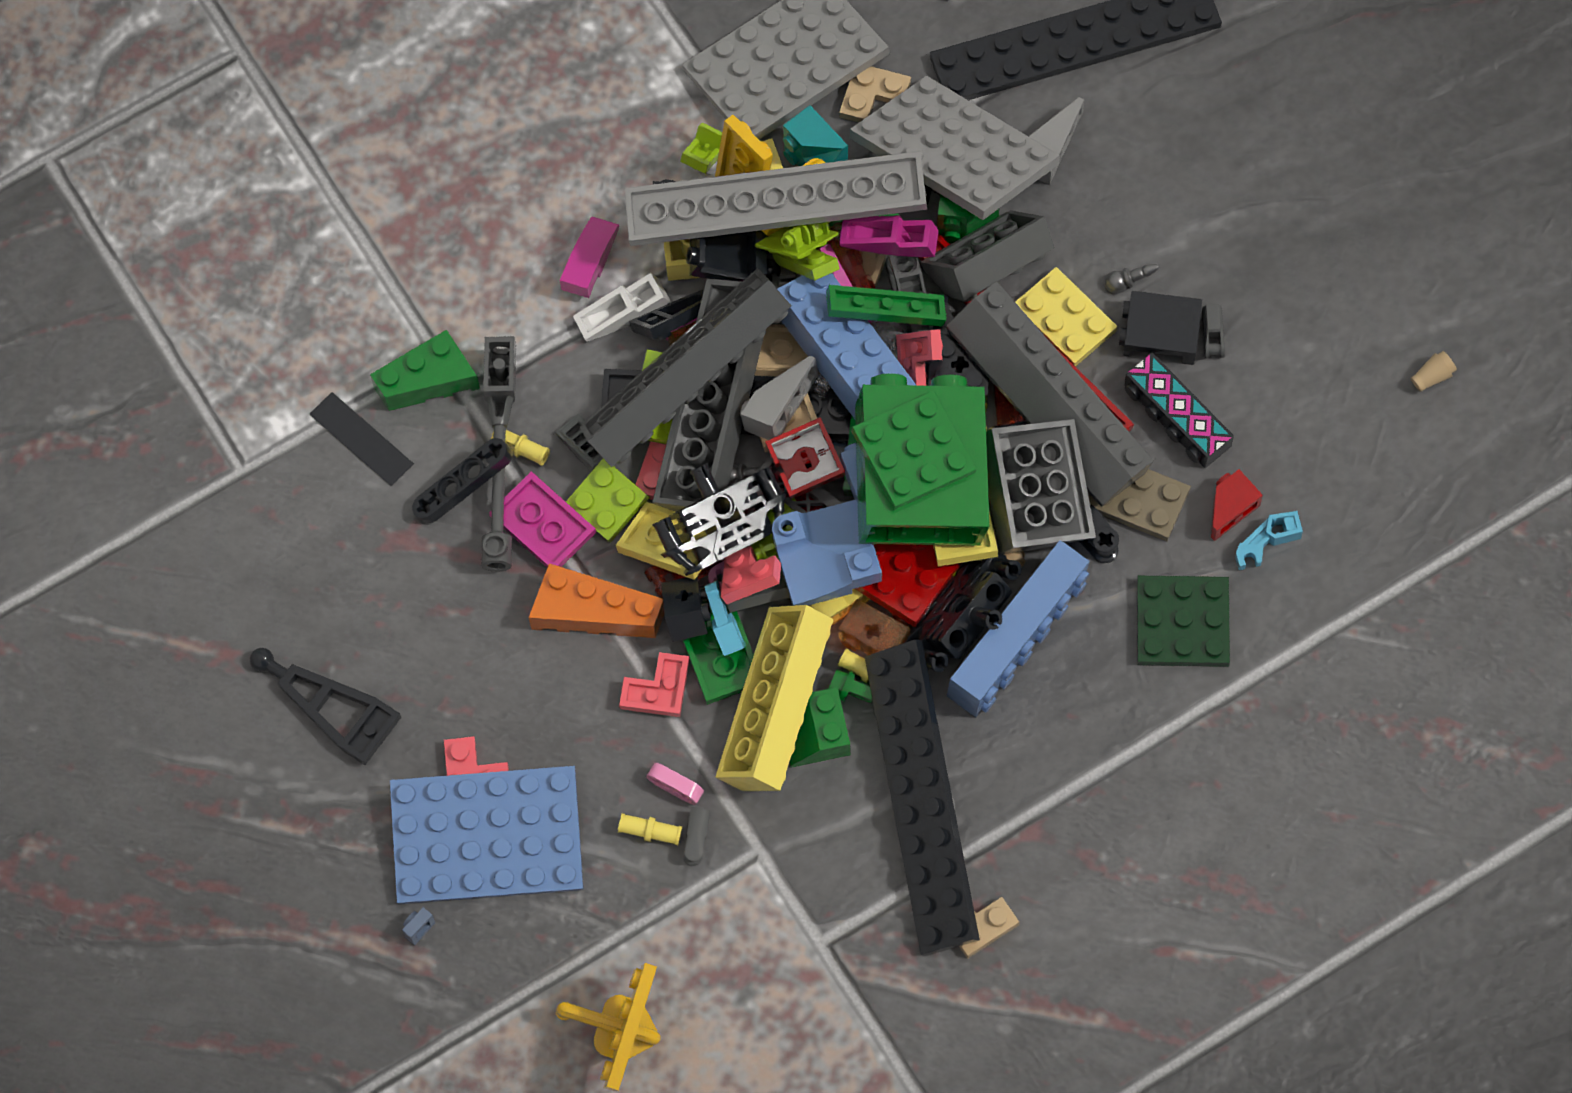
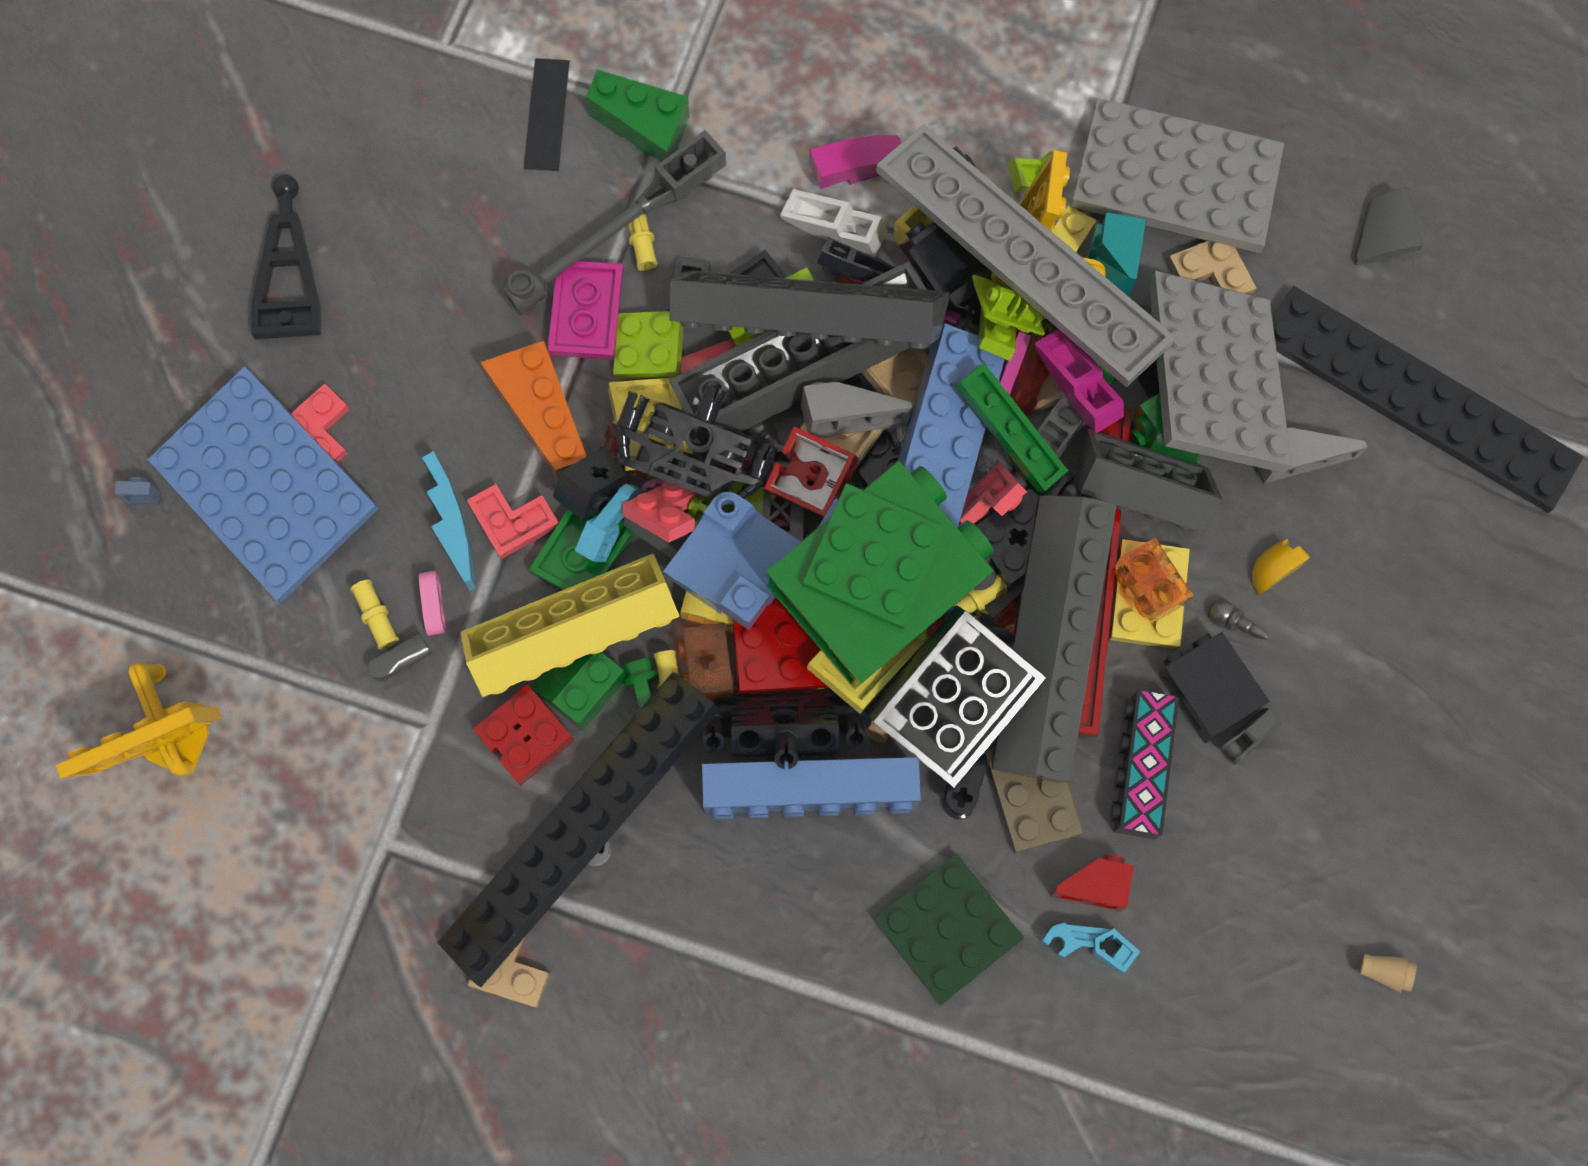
camera: 45 degrees right, 5 degrees up
(465, 485) = (602, 219): black beam -> none
(636, 732) = (452, 529): none -> medium azure slope
(822, 774) = (520, 753): none -> red piece
(1062, 297) = (1161, 577): none -> clear orange brick
(1112, 221) = (1276, 564): none -> yellow brick

